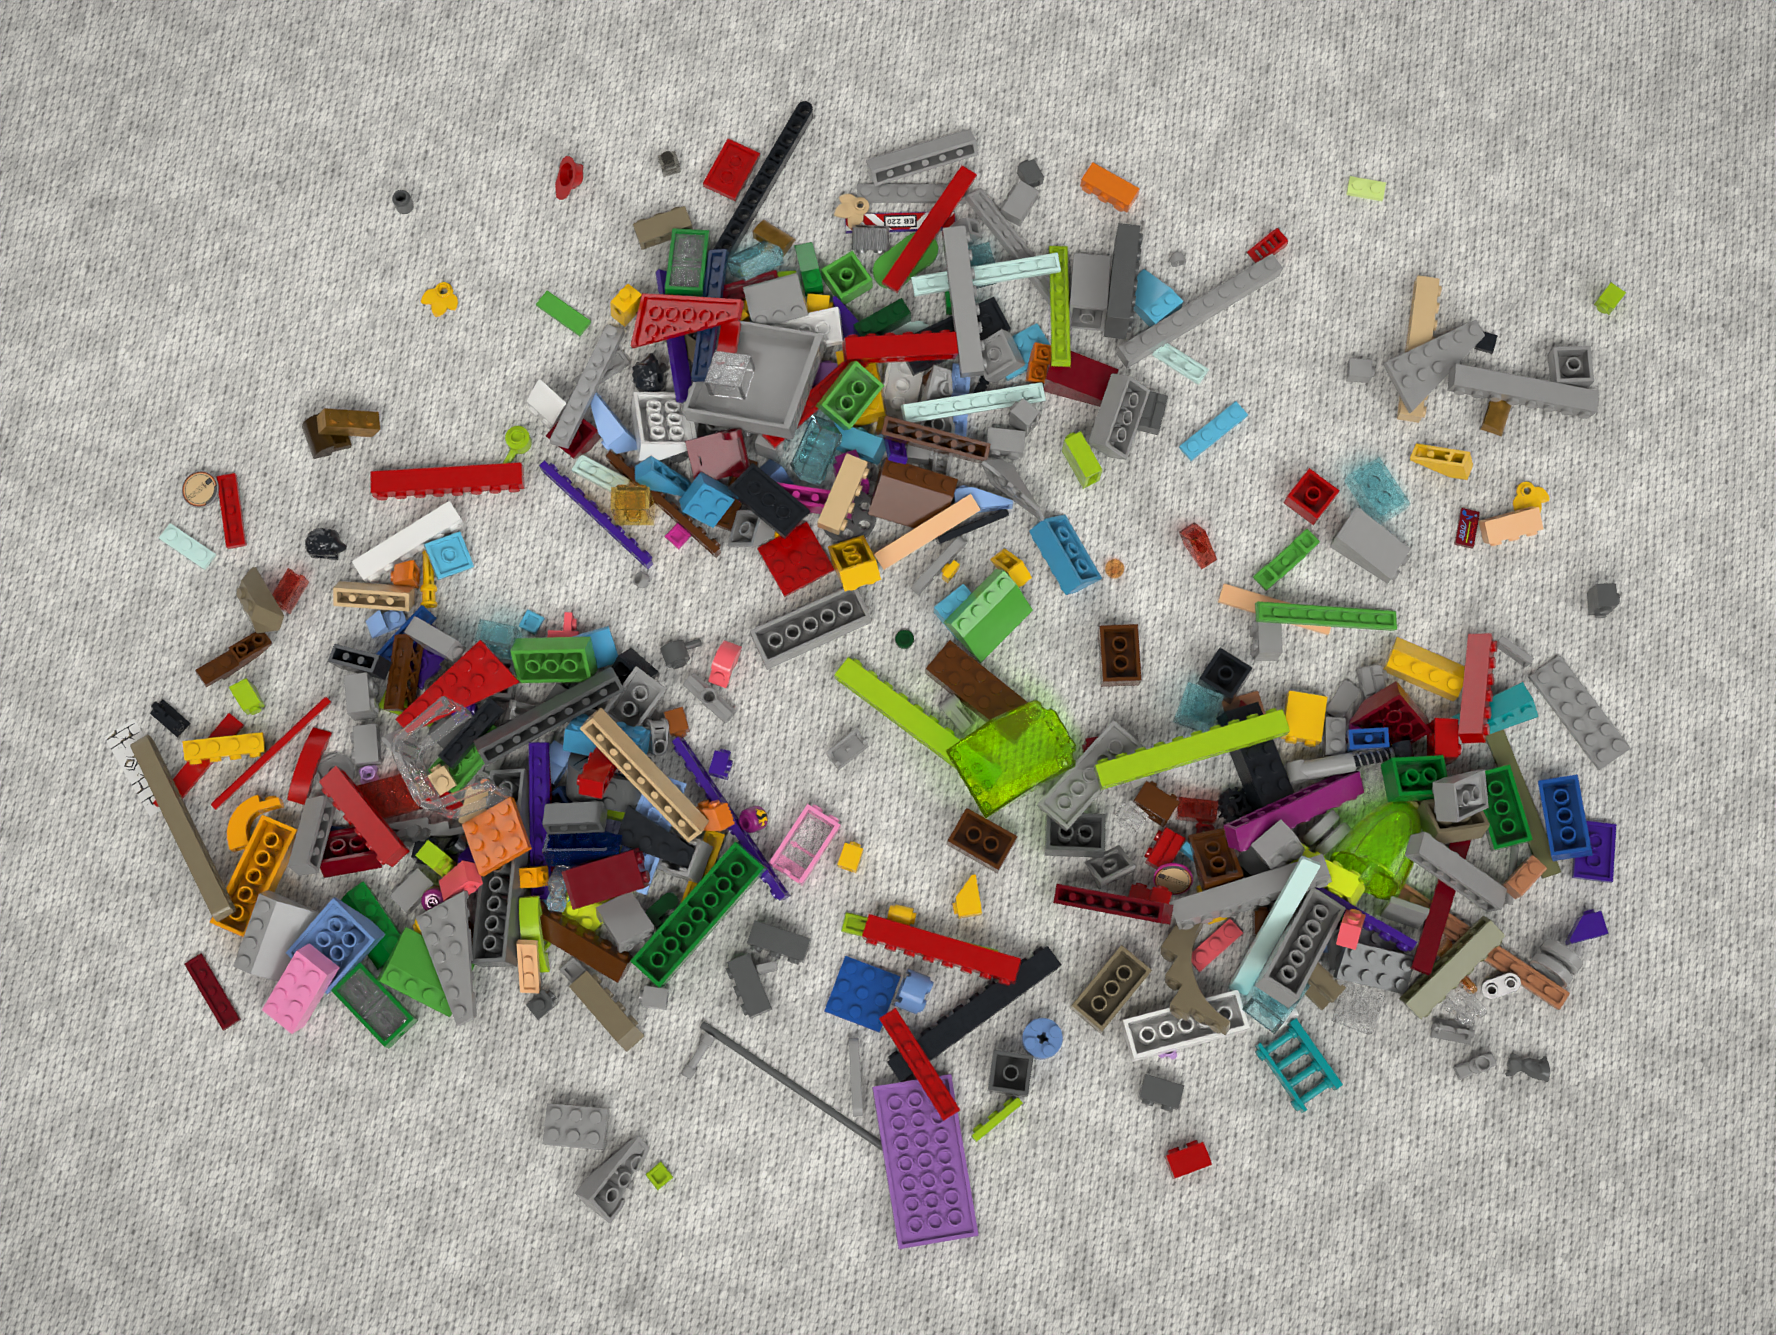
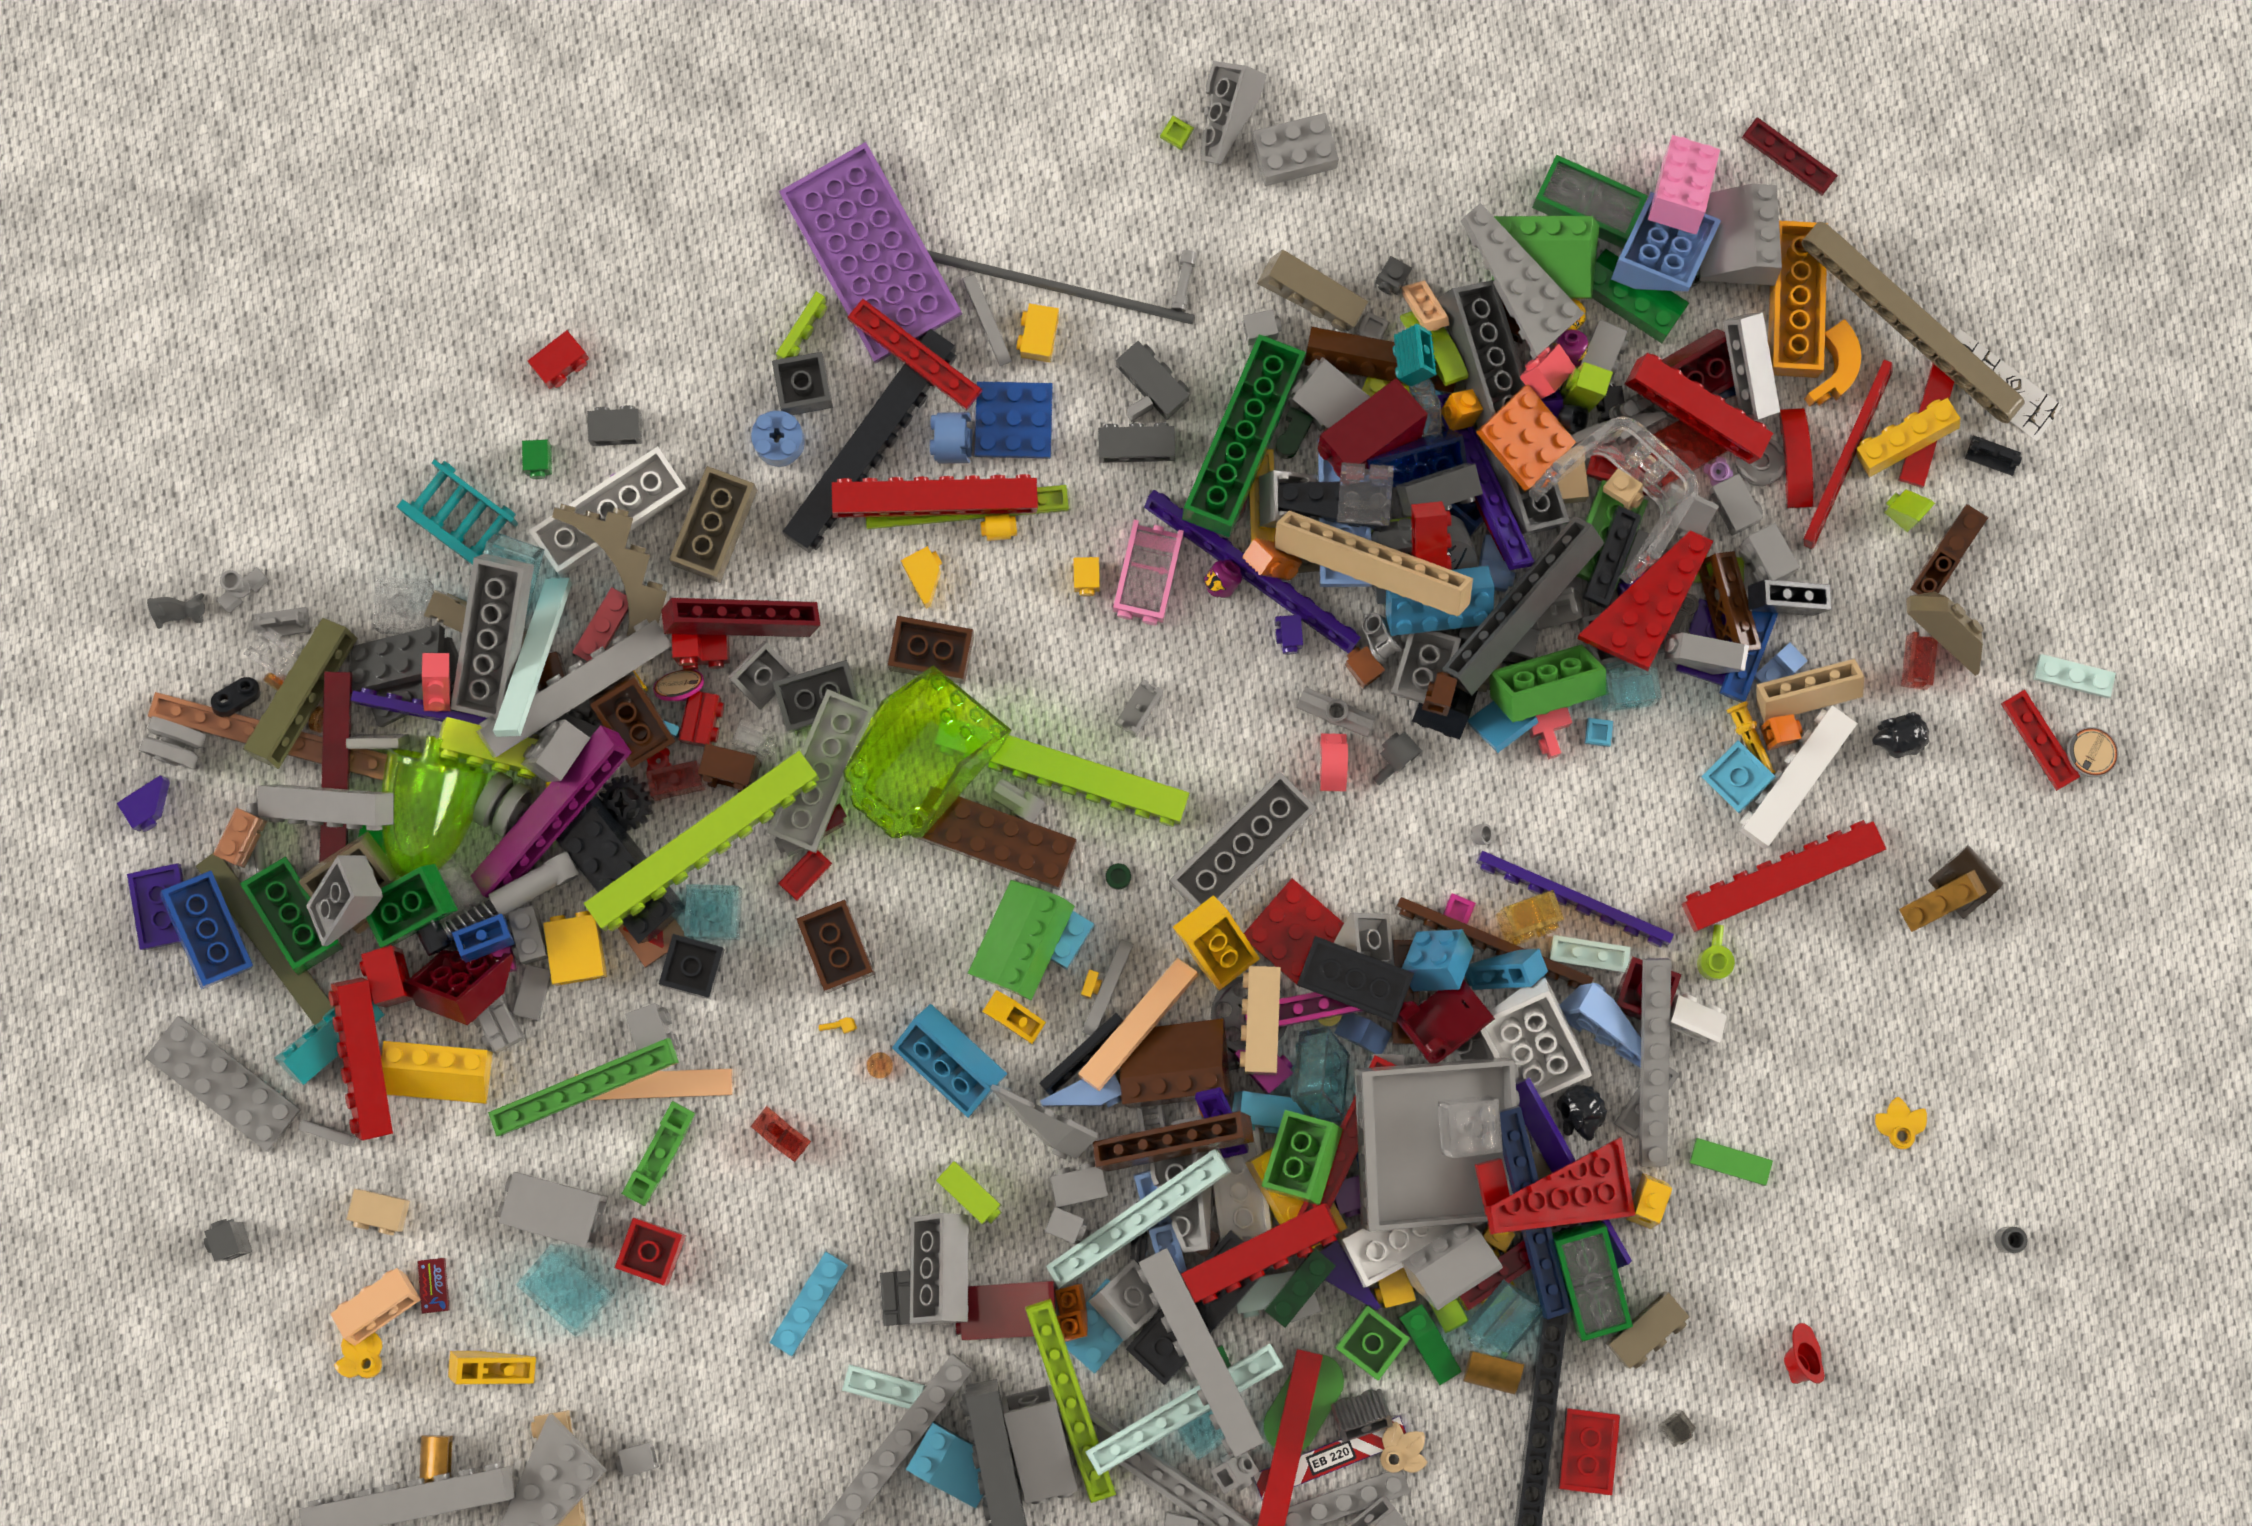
camera: 160 degrees right, 5 degrees up
(552, 924) = (1414, 355): none -> teal brick
(630, 826) = (1365, 494): none -> clear piece
(632, 672) = (1440, 694): none -> reddish brown brick
(820, 1052) = (1038, 333): none -> yellow brick
(1125, 715) = (805, 874): none -> red tile
(1127, 603) = (847, 1025): none -> yellow hand
(1226, 1088) = (537, 458): none -> green brick
(1492, 588) = (378, 1211): none -> tan brick

